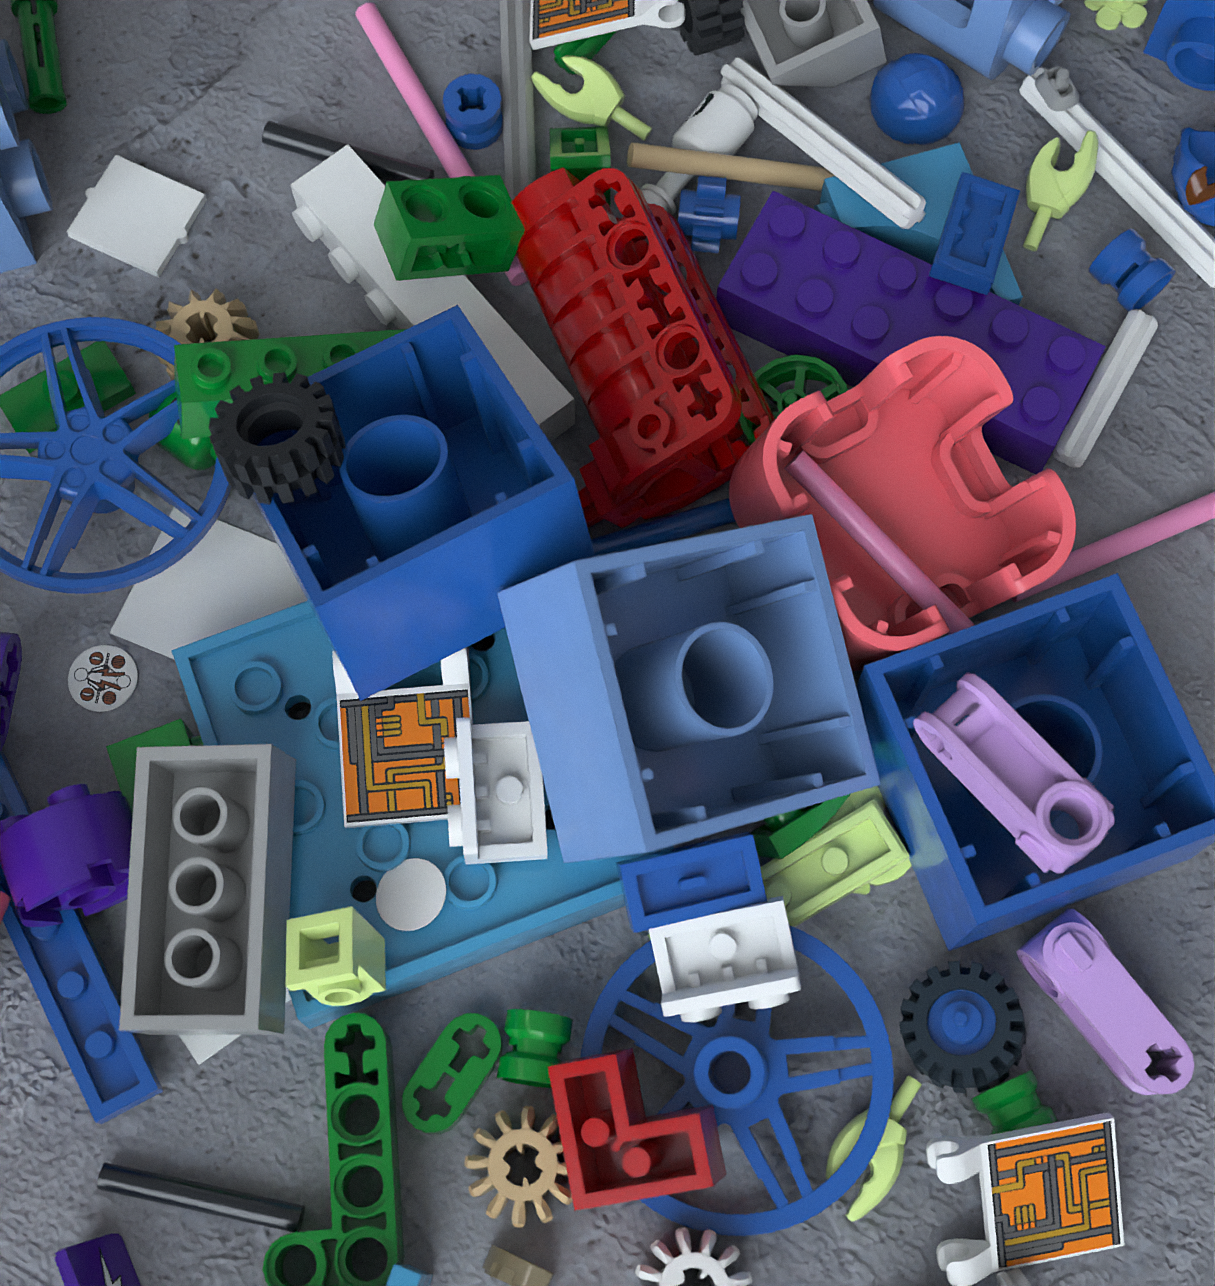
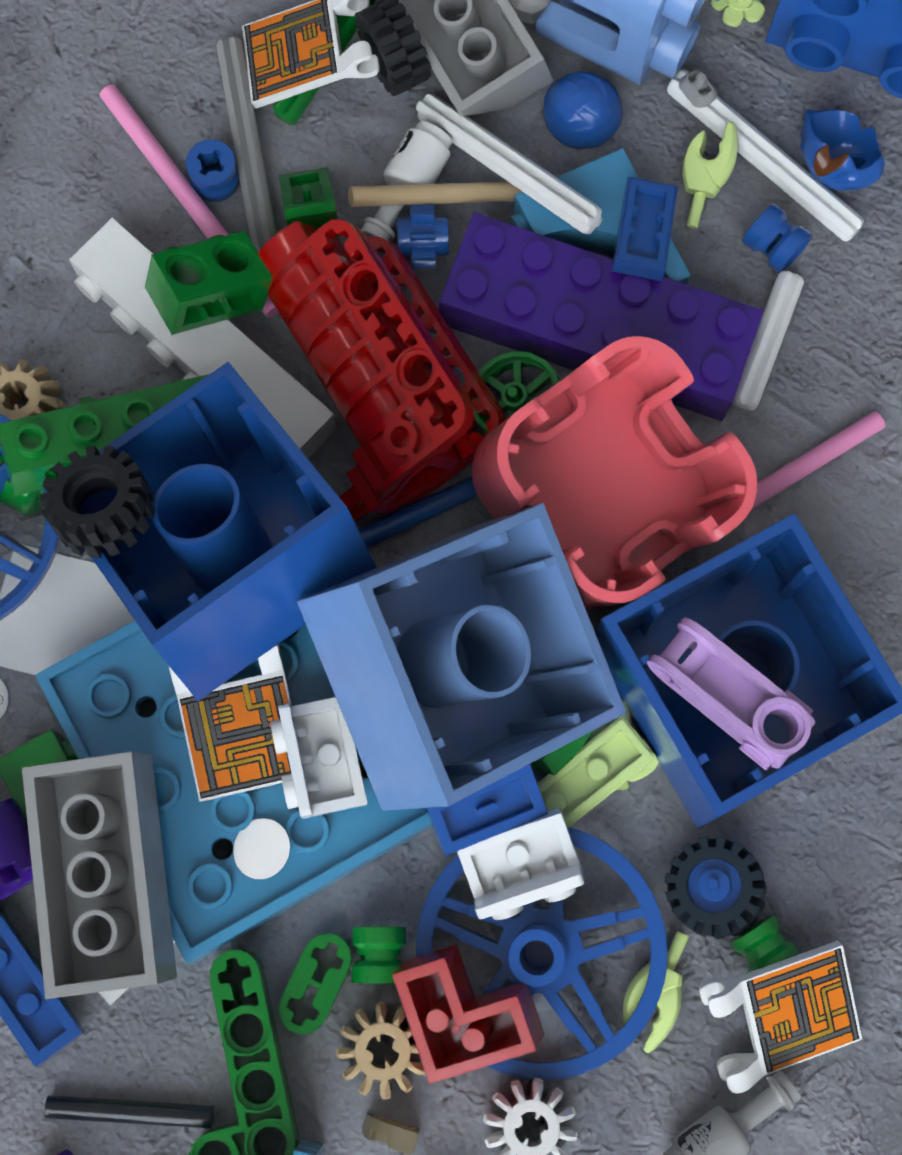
camera: 10 degrees left, 5 degrees up
(322, 148) = (96, 220): black bar -> none
(336, 971) = (210, 922): yellowish green brick -> none
(597, 100) = (315, 147): yellowish green hand -> none
(874, 540) = (601, 510): bright pink bar -> none
(1106, 1005) = (826, 853): lavender piece -> none

